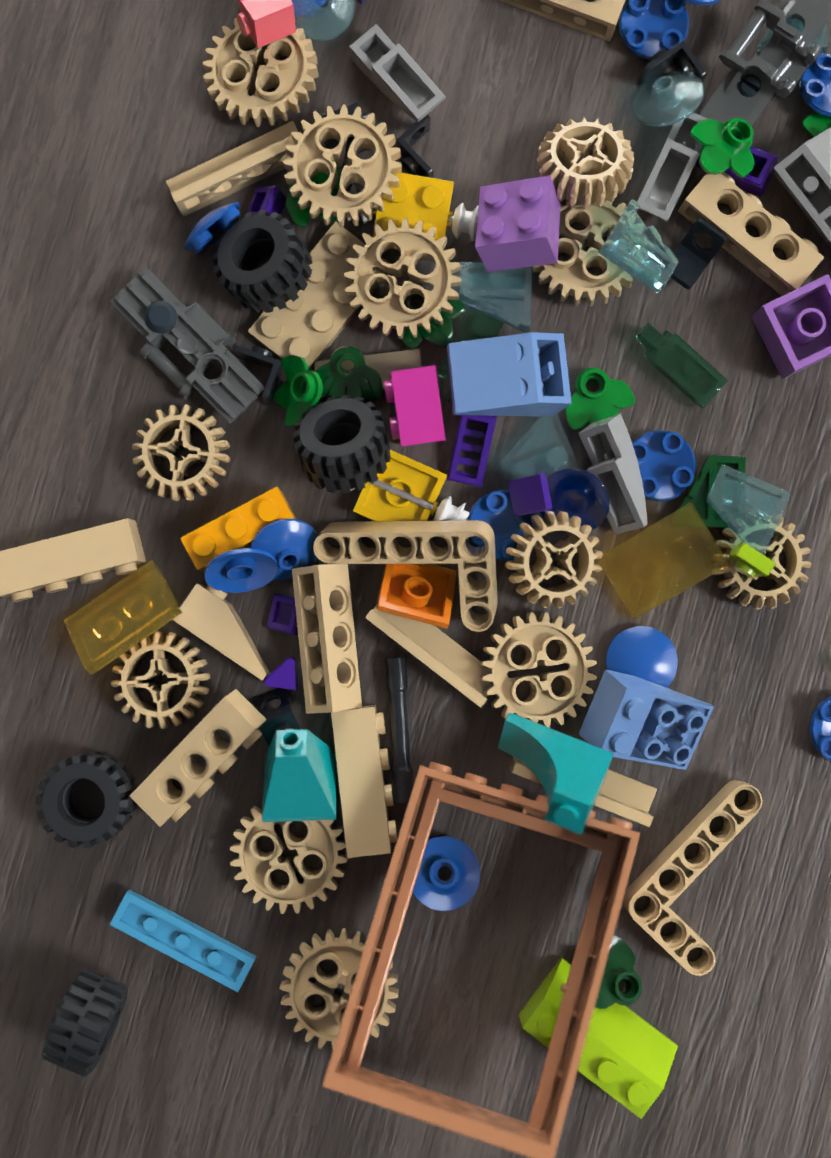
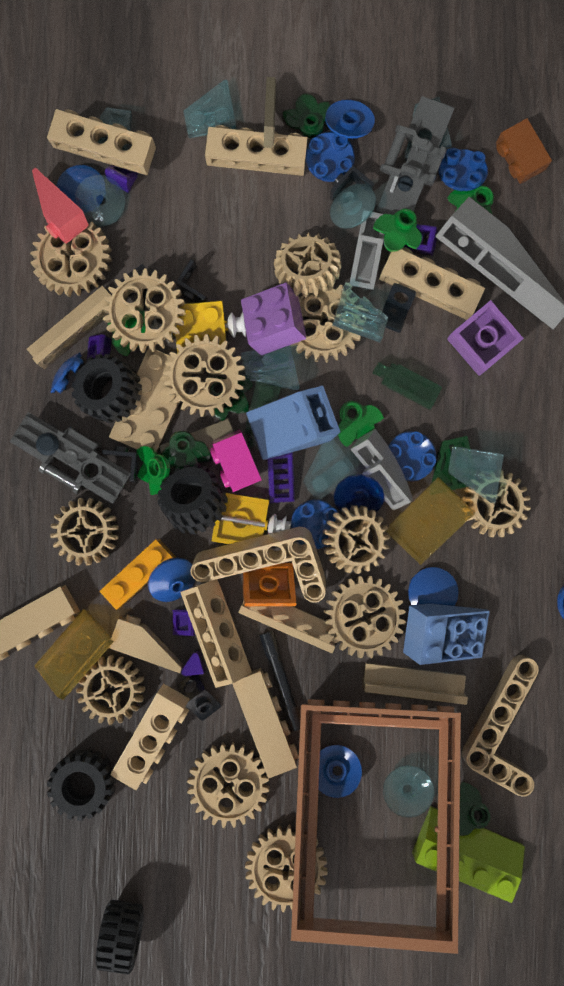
camera: 15 degrees left, 0 degrees up
(183, 940) = (171, 862): dark azure plate -> none
(241, 570) = (146, 602): blue dish -> none
(299, 778) = (222, 734): teal slope -> none
(395, 73) = (164, 237): light grey slope -> none
(530, 494) = (328, 500): dark purple slope -> none
(538, 945) = (413, 802): none -> clear light blue dish
(564, 765) = (399, 678): teal arch -> none
(750, 561) = (488, 508): lime plate -> none

